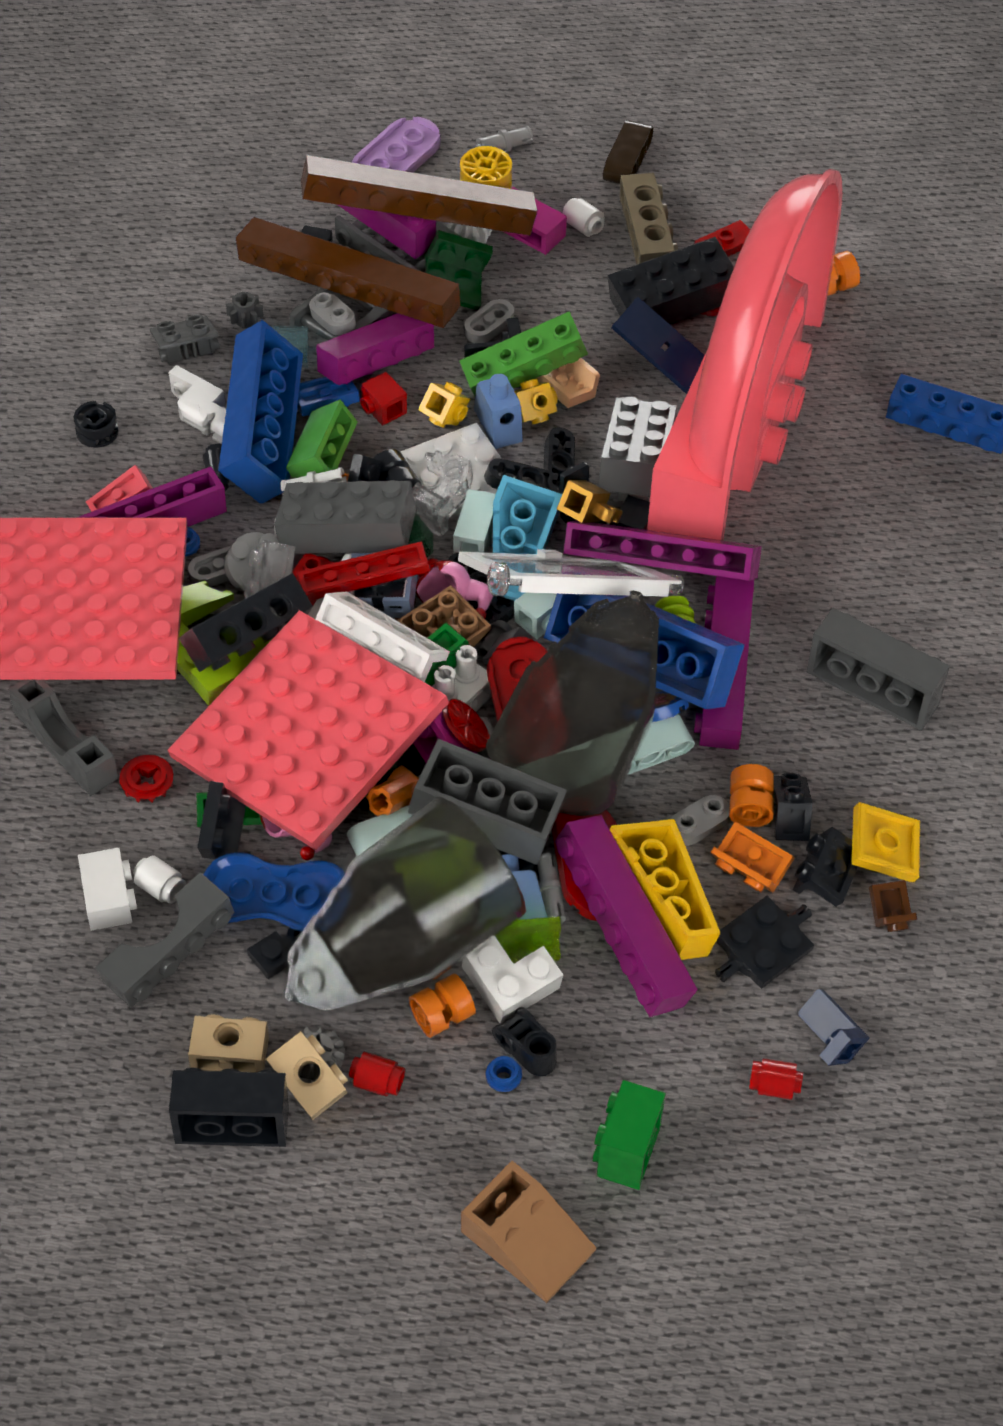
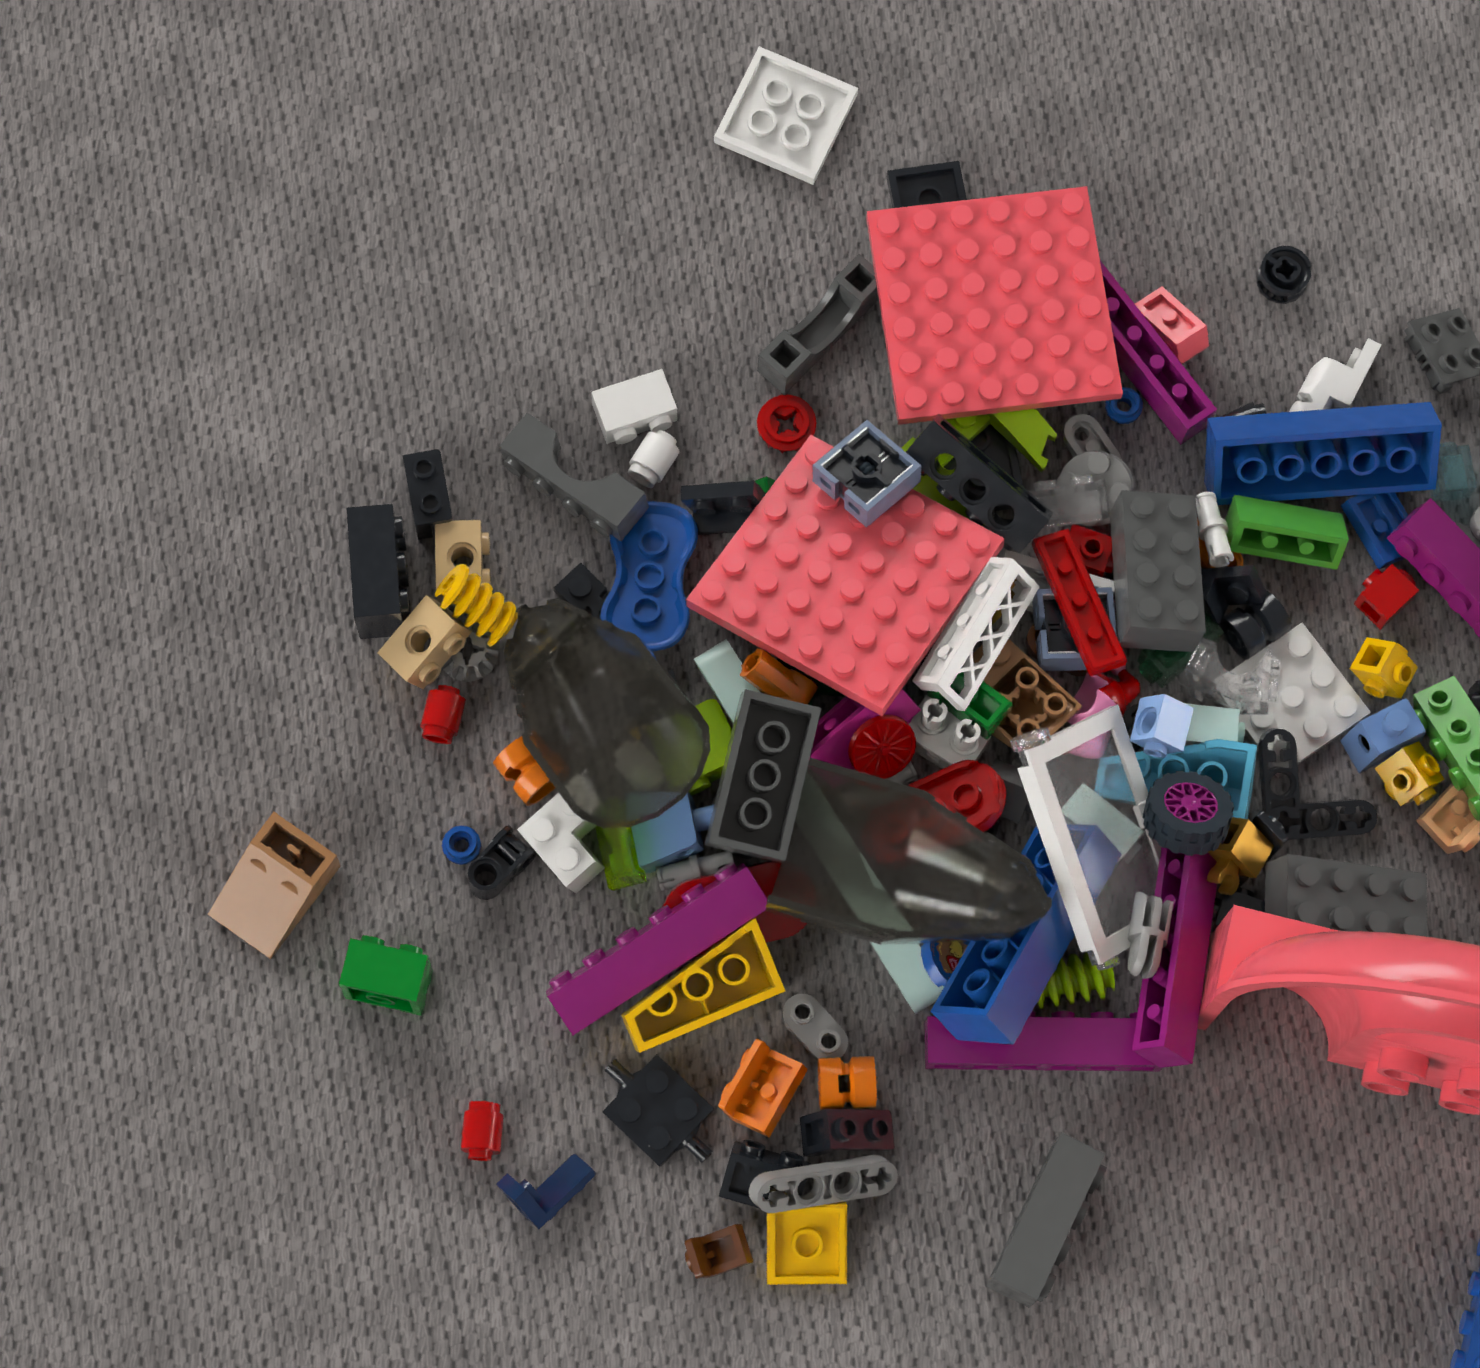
camera: 80 degrees right, 20 degrees up
(150, 1062) = (427, 491): none -> black bracket
(223, 692) = (867, 473): none -> piece
(281, 1019) = (478, 603): none -> yellow piece
(468, 533) = (1161, 725): none -> light blue brick
(558, 517) = (1188, 813): none -> black wheel
(656, 555) = (1148, 933): none -> light grey arm
(840, 817) = (823, 1188): none -> light grey beam

